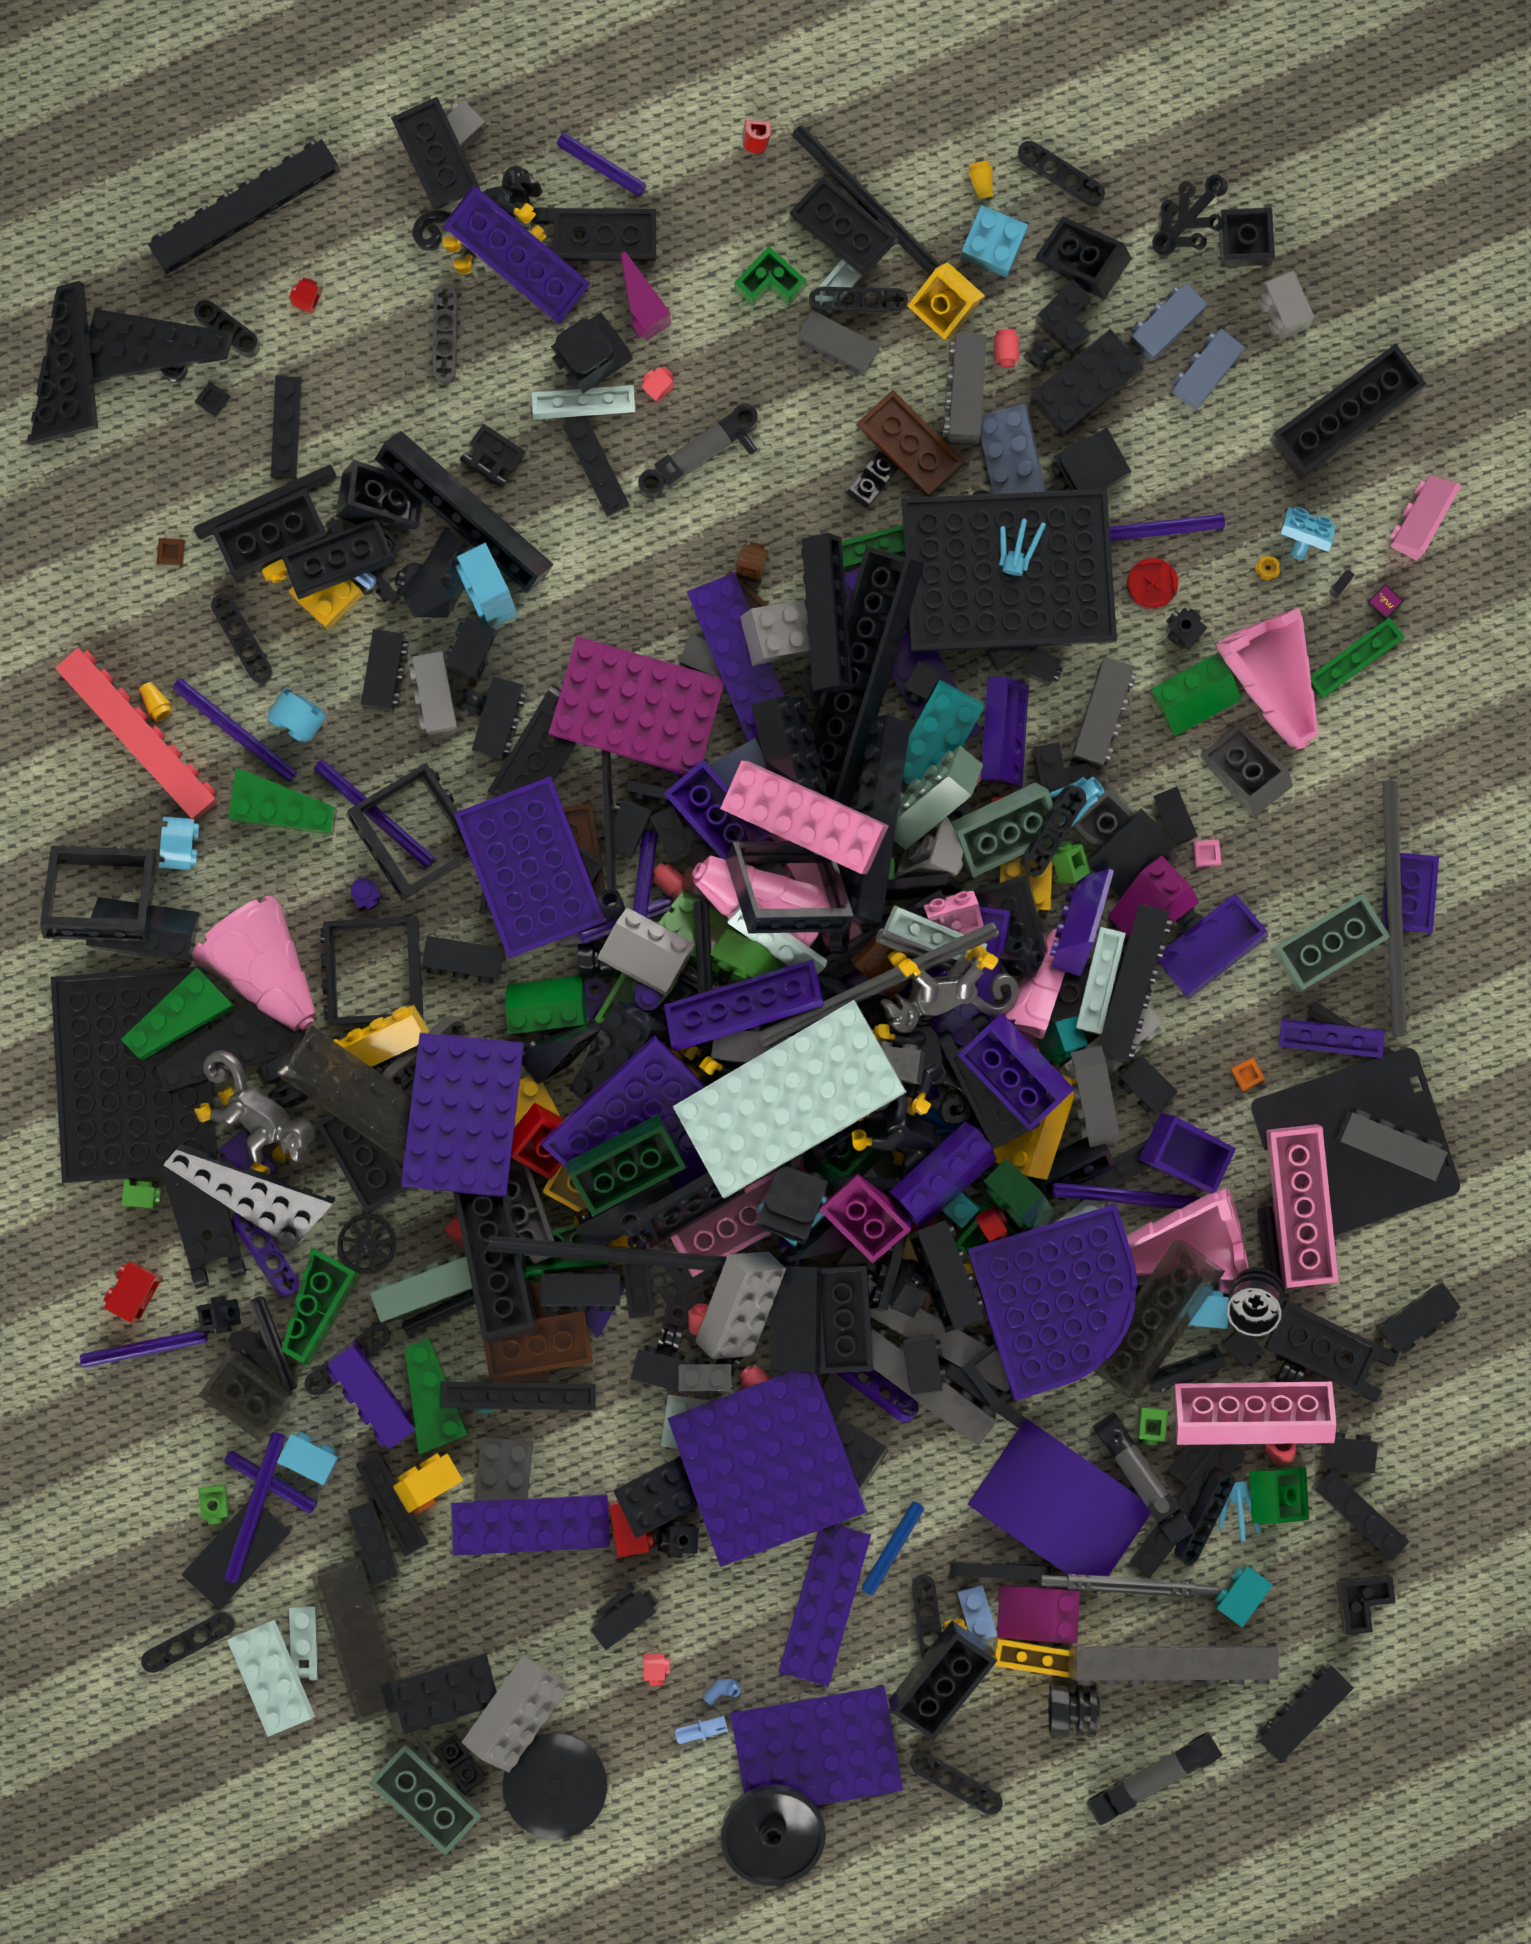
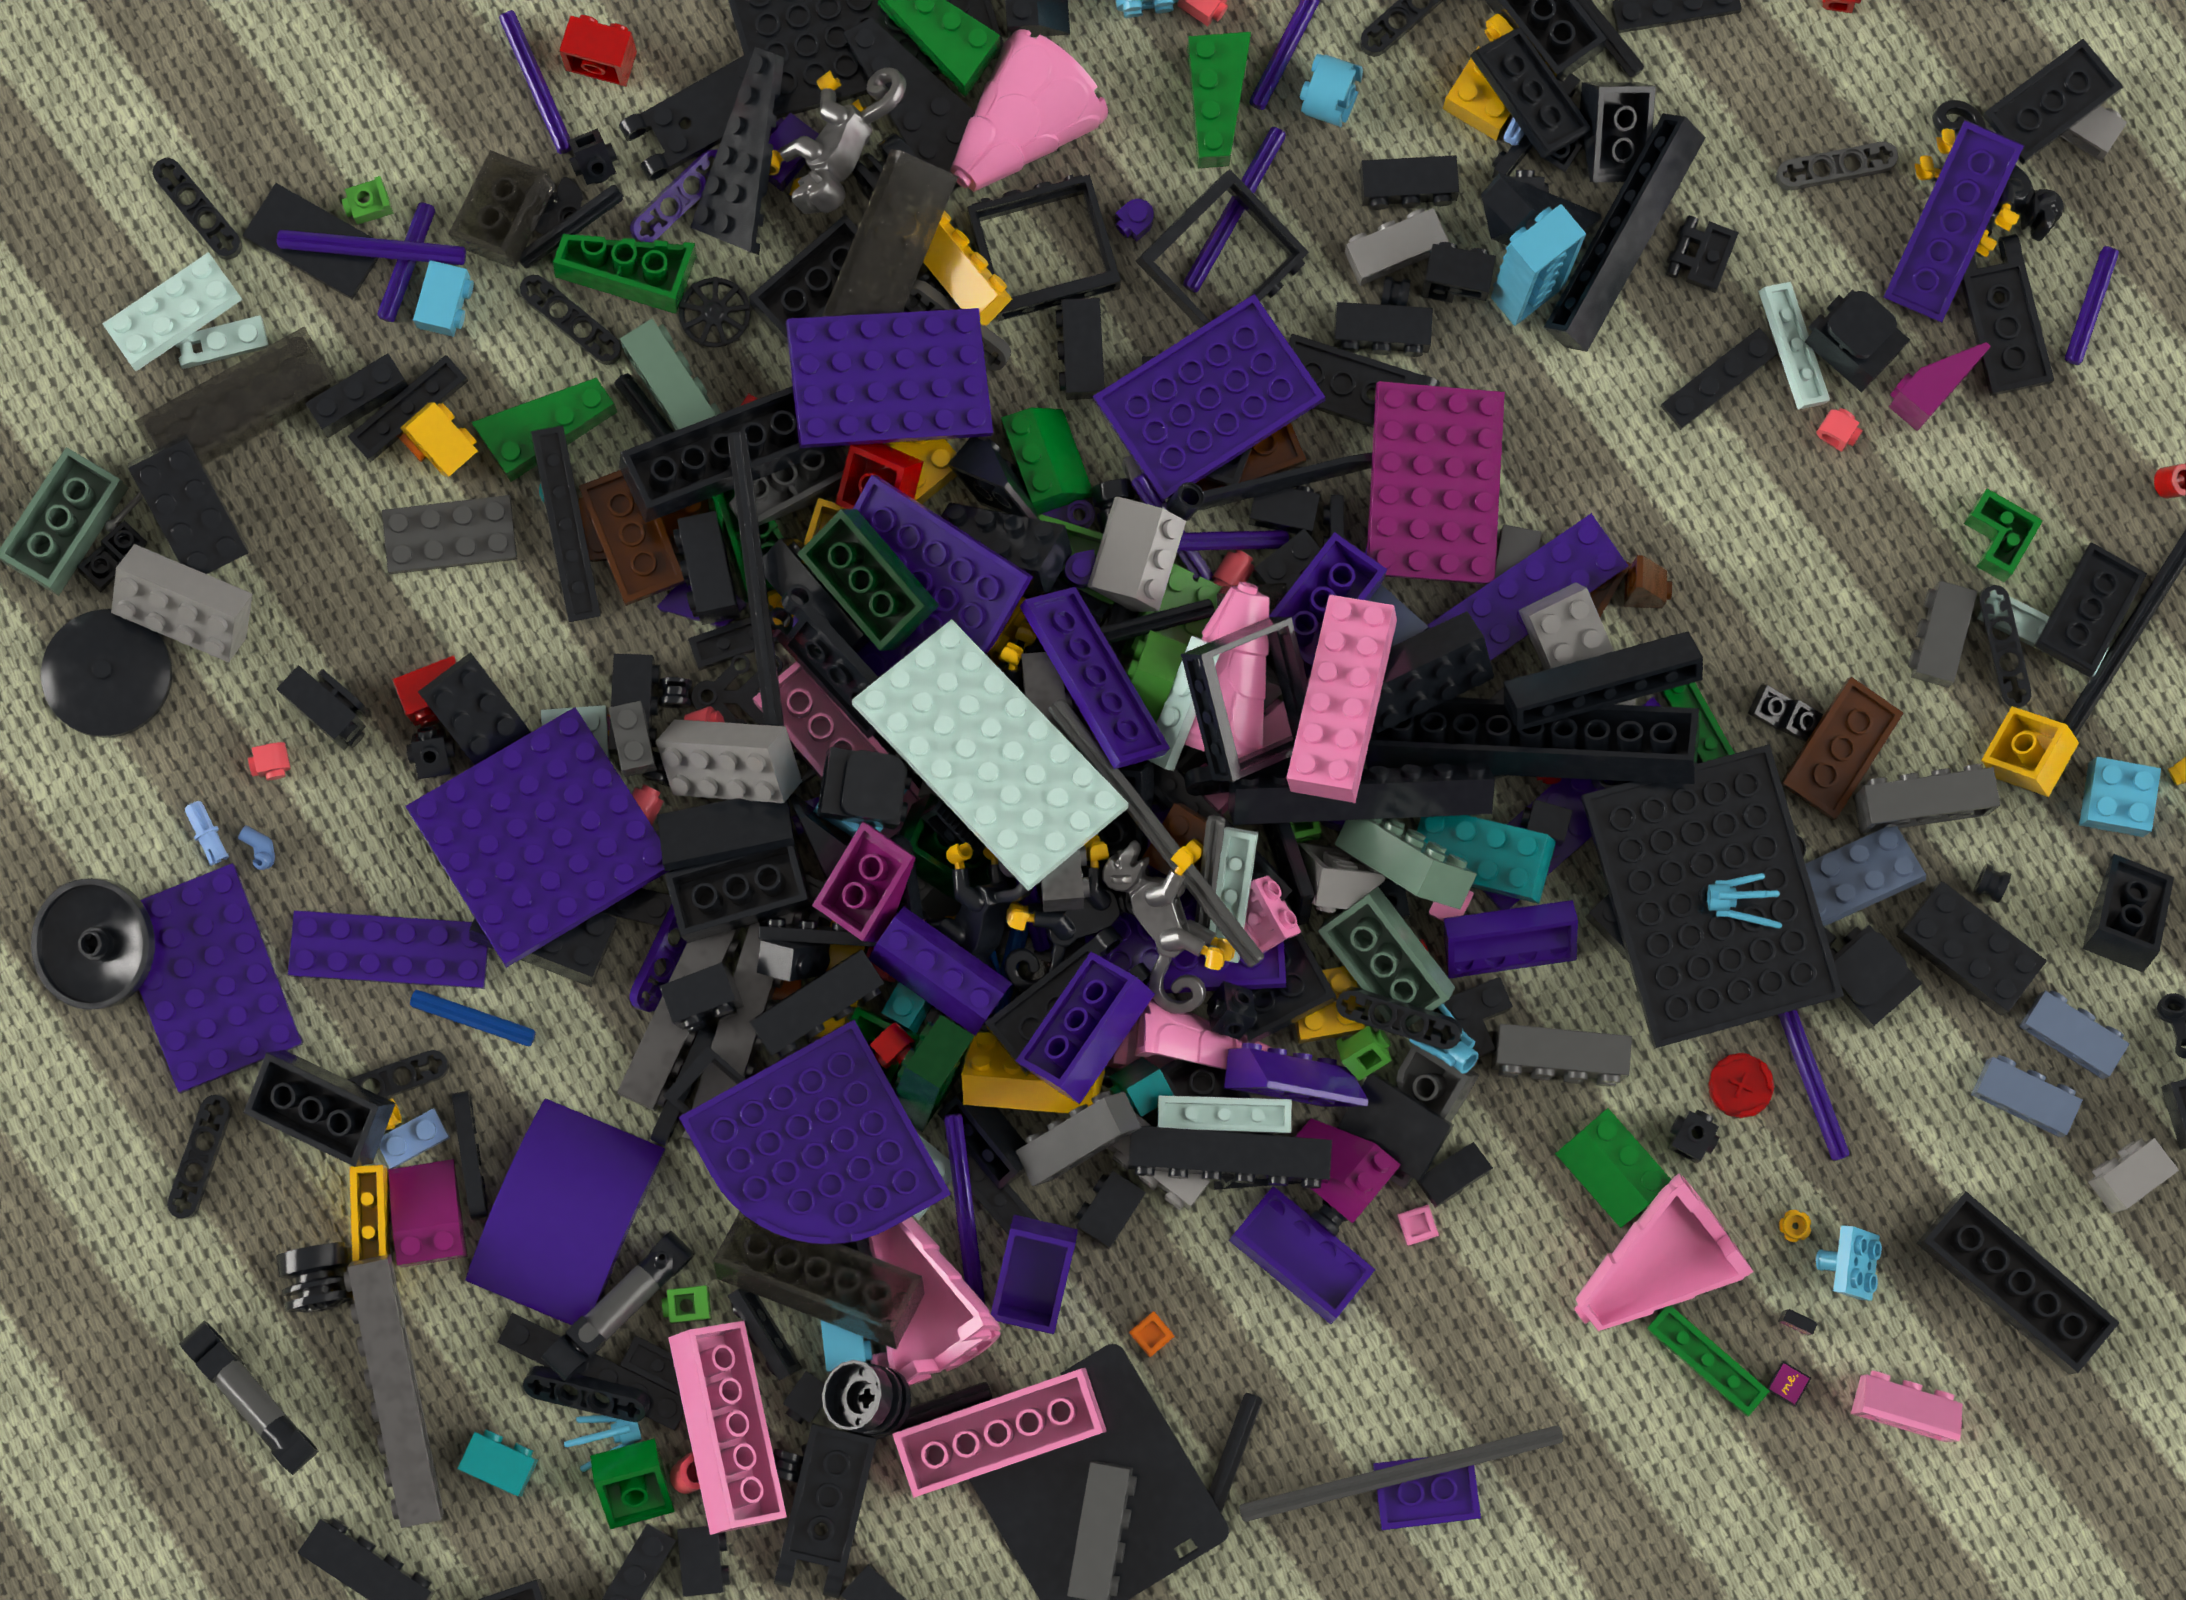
camera: 75 degrees right, 5 degrees down
(141, 1195) = (716, 37): bright green brick -> none
(371, 1394) = (531, 349): dark purple brick -> none
(529, 1524) = (413, 571): dark purple plate -> none
(675, 467) = (1738, 469): piece -> none
(1006, 348) = (1990, 841): coral brick -> none
(1042, 667) = (1602, 969): black brick -> none
(1060, 319) = (2046, 898): black brick -> none
(1129, 1585) = (482, 1318): dark grey axle -> none
(1247, 770) = (1533, 1252): dark grey slope -> none
(1330, 943) = (1339, 1402): sand green brick -> none
(1332, 1038) = (1219, 1429): dark purple plate -> none

